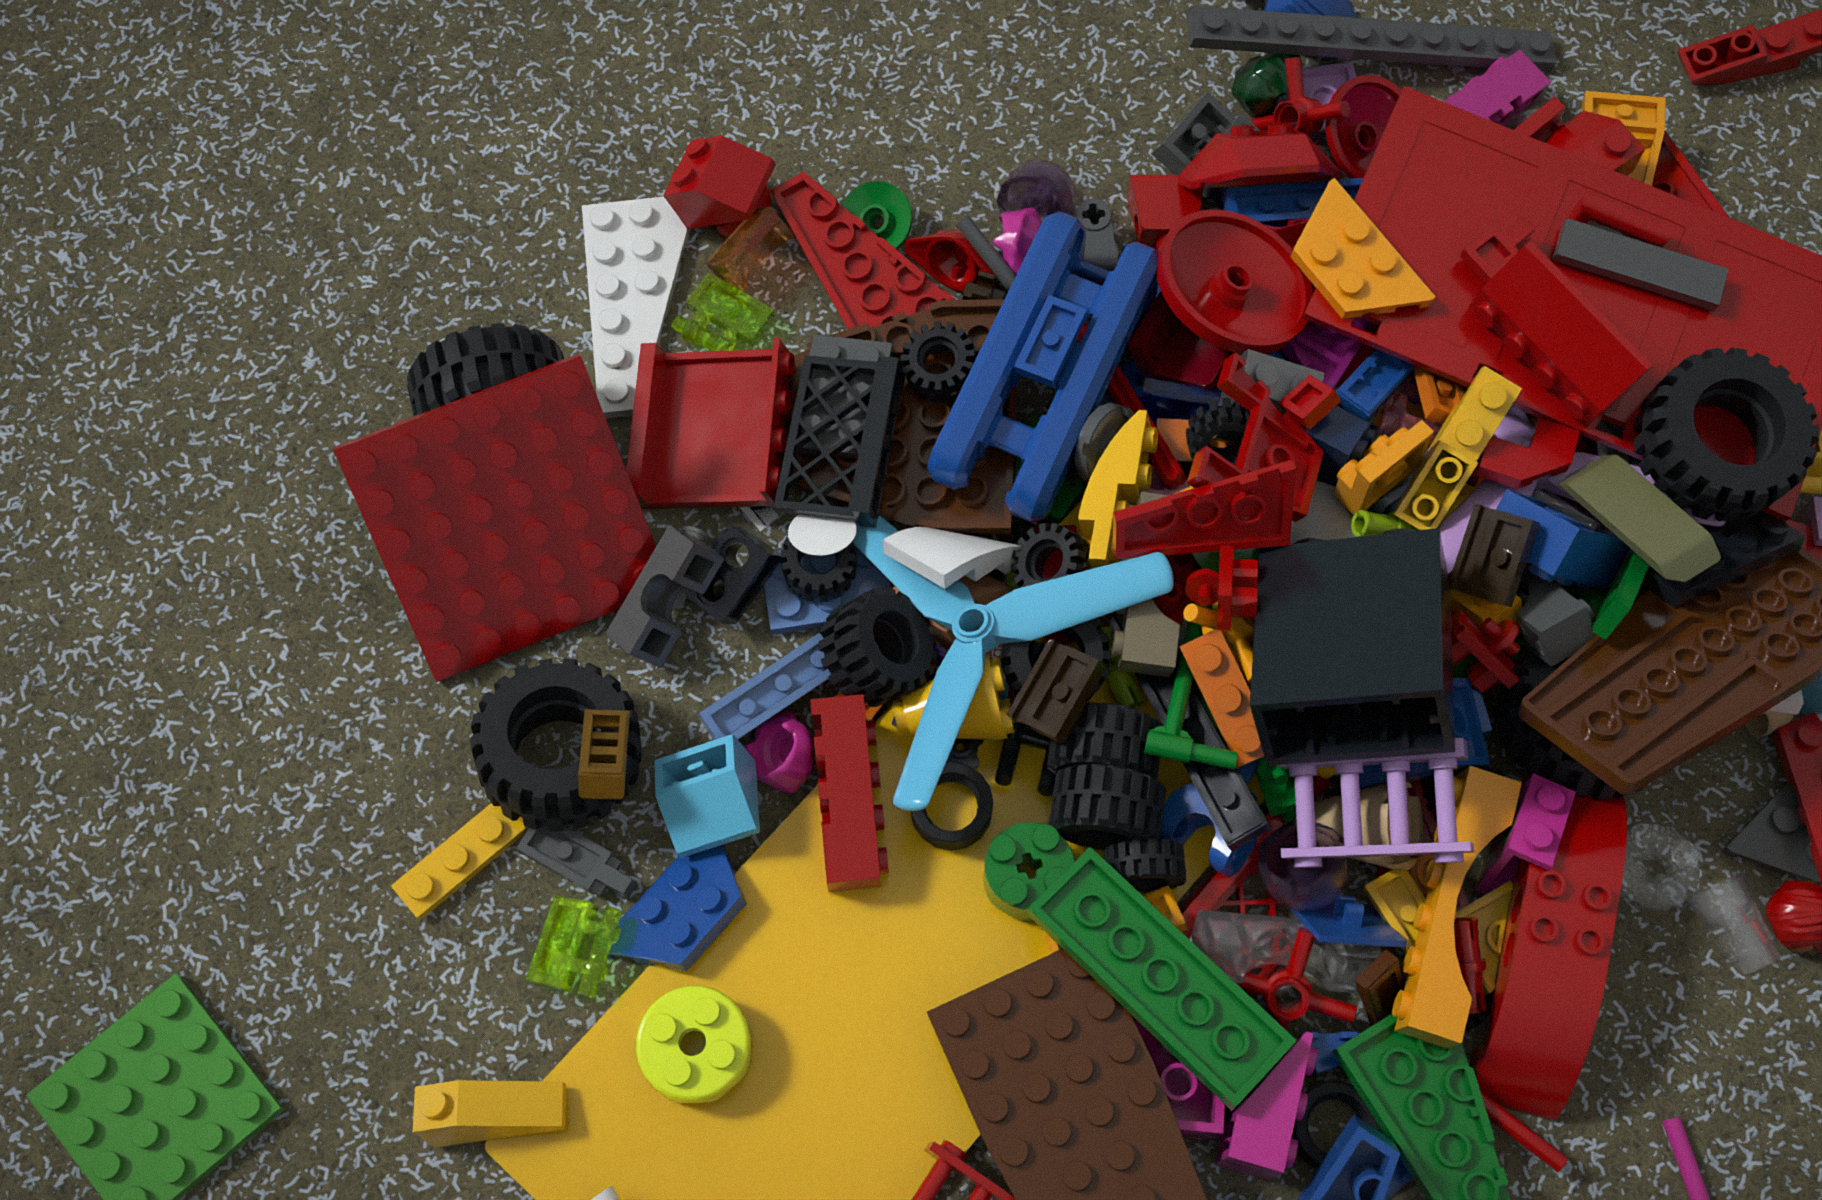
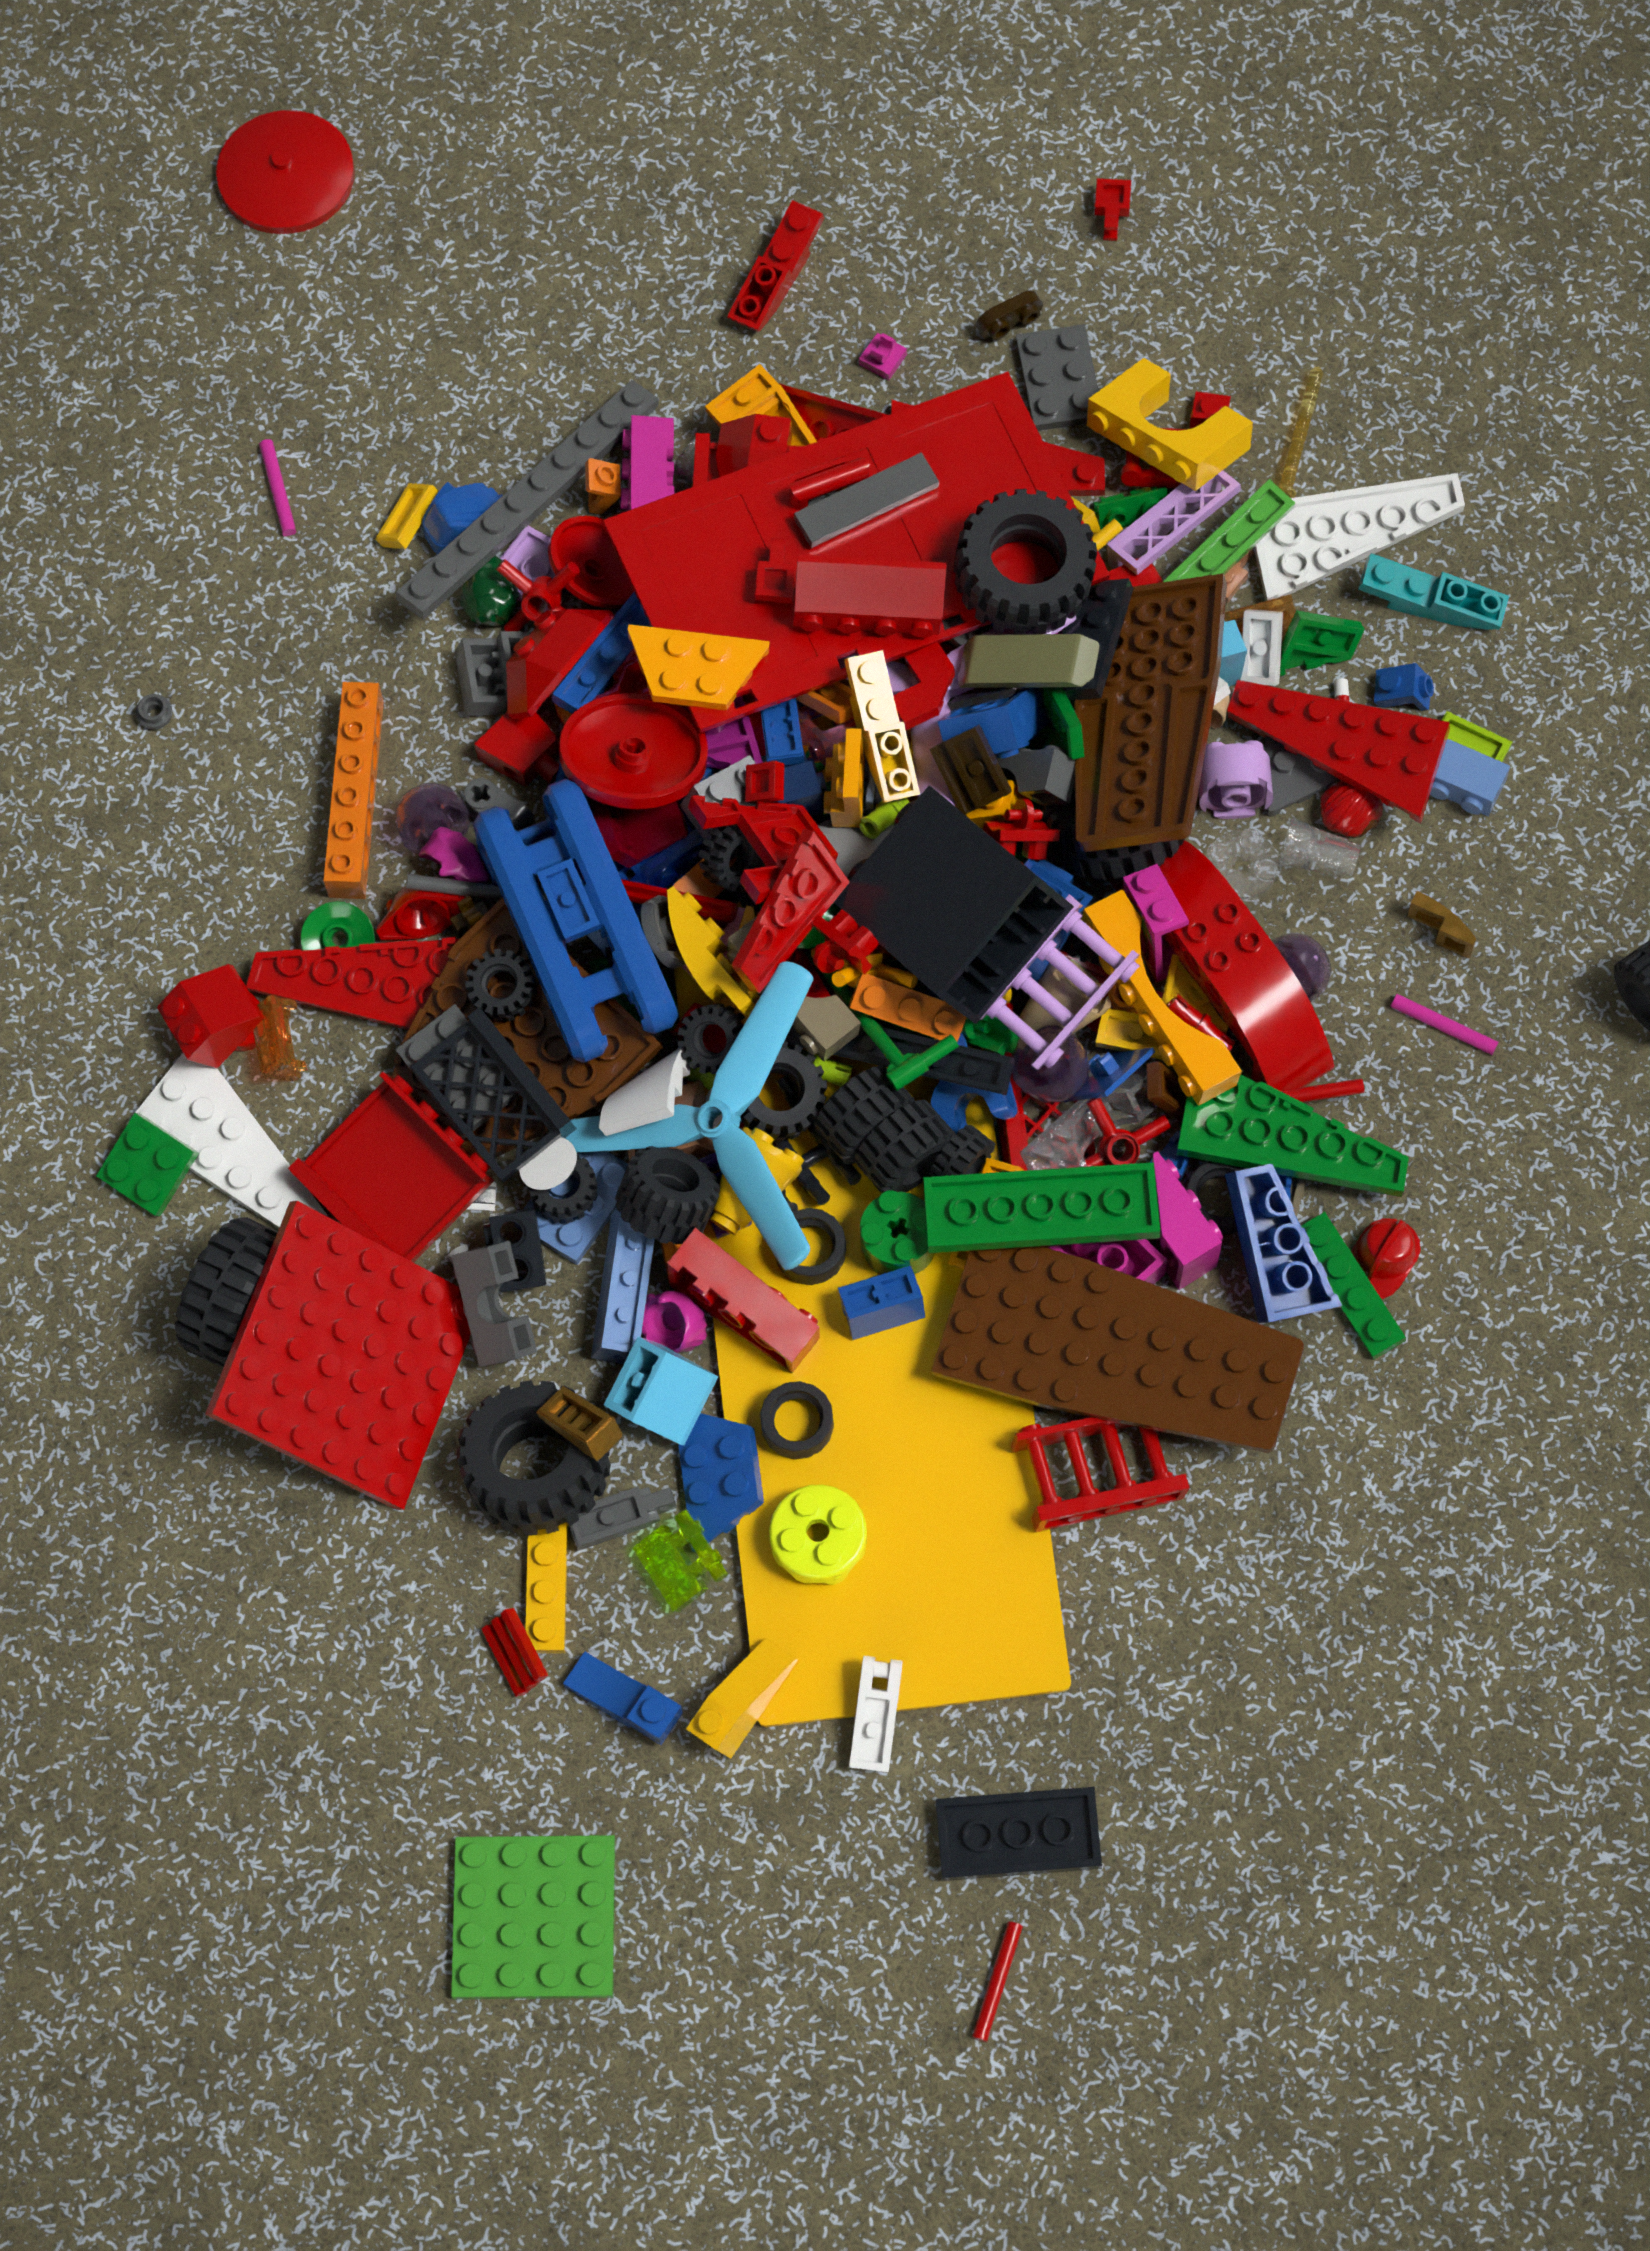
camera: 45 degrees left, 0 degrees up
(380, 879) = (510, 1654): none -> red tile
(411, 1008) = (624, 1698): none -> blue slope
(560, 247) = (147, 1164): none -> green plate
(727, 308) = (310, 1092): clear neon green plate -> none
(784, 899) = (794, 1391): none -> black tyre
(955, 911) = (882, 1302): none -> blue hinge
(1007, 127) = (353, 790): none -> orange brick
(1056, 690) = (807, 1107): dark brown plate -> none
(1443, 75) = (602, 484): none -> orange bracket
(1624, 1006) = (1307, 961): none -> clear purple cylinder
(1724, 791) = (1235, 779): none -> lavender brick
(1776, 190) = (883, 356): none -> dark pink tile
(1790, 1115) = (1452, 931): none -> pearl gold slope

